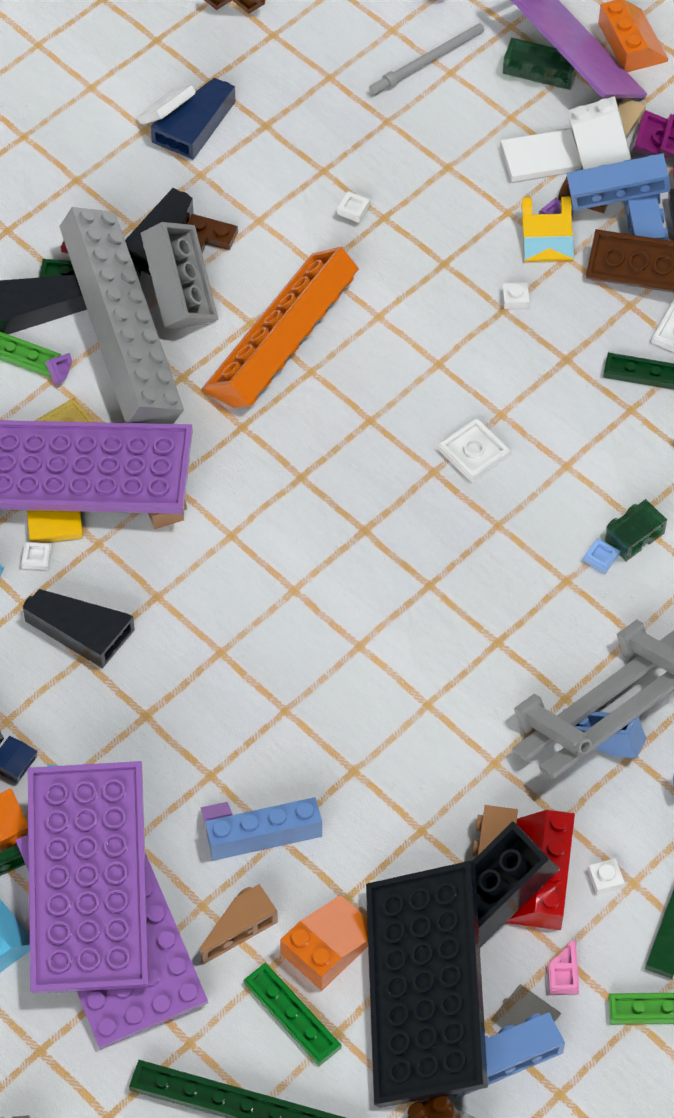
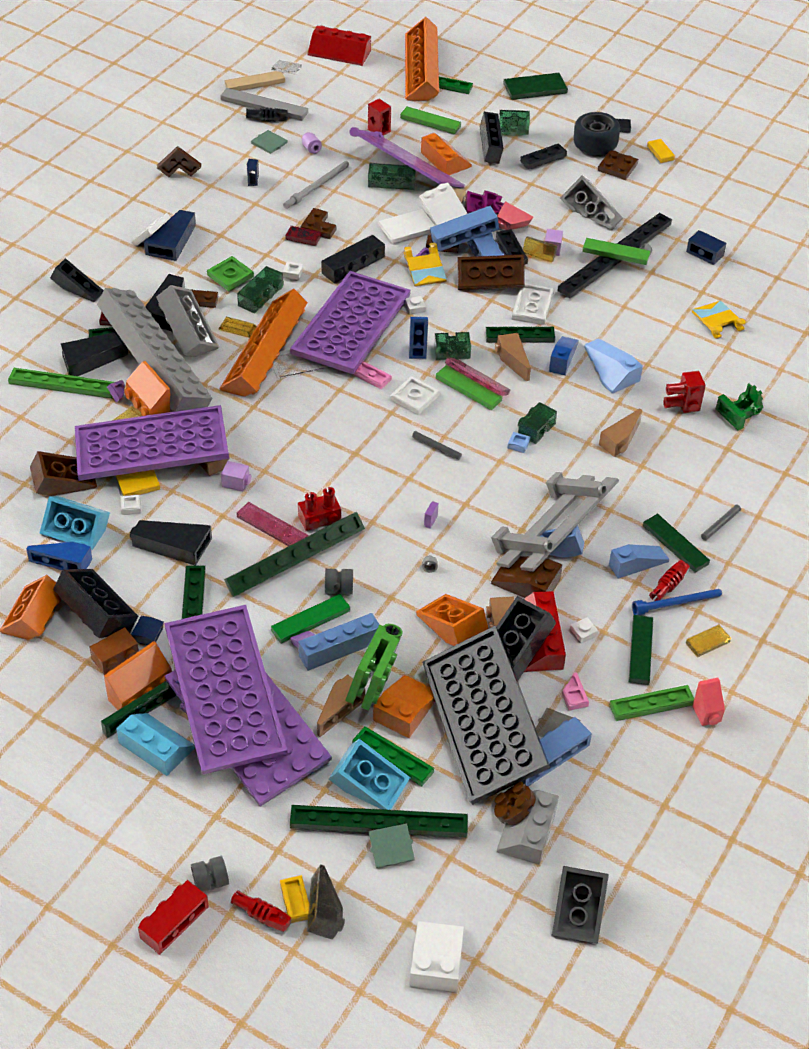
camera: 15 degrees left, 10 degrees down
(42, 176) = (75, 281): none -> black slope
(87, 717) = (194, 591): none -> dark green tile
(96, 384) = (147, 391): none -> slope
(188, 539) = (235, 476): none -> lavender brick
(220, 627) = (270, 524): none -> clear pink tile
(235, 782) = (310, 618): none -> green tile
(238, 679) = (294, 554): none -> dark green plate
(251, 1040) = (369, 776): none -> medium azure slope
(252, 290) = (237, 327): none -> clear yellow tile
(262, 197) = (230, 273): none -> bright green plate
(286, 735) = (338, 581): none -> dark grey wheel
(288, 618) = (319, 511): none -> red brick
(298, 233) = (260, 289): none -> clear green brick
(309, 870) = (379, 659): none -> bright green hinge
(324, 365) = (292, 366): none -> clear tile
(337, 24) = (252, 165): none -> dark blue piece
(384, 147) = (303, 235): none -> dark red tile
(407, 131) = (316, 222): none -> reddish brown plate
(413, 311) = (350, 322): none -> medium lavender plate
(414, 397) = (373, 375): none -> bright pink tile
(419, 730) = (433, 564): none -> light grey hinge
(428, 825) = (453, 619): none -> orange slope
(442, 653) = (431, 514): none -> medium lavender tile
(445, 201) = (353, 258): none -> black brick
(483, 539) = (449, 451): none -> dark grey bar
(499, 362) = (418, 337): none -> blue slope
(549, 378) = (452, 346): none -> clear green brick
(555, 450) = (468, 387): none -> bright green tile
(562, 793) = (526, 582): none -> reddish brown slope
(571, 436) = (477, 376): none -> clear pink tile
(632, 406) = (513, 354): none -> medium nougat slope

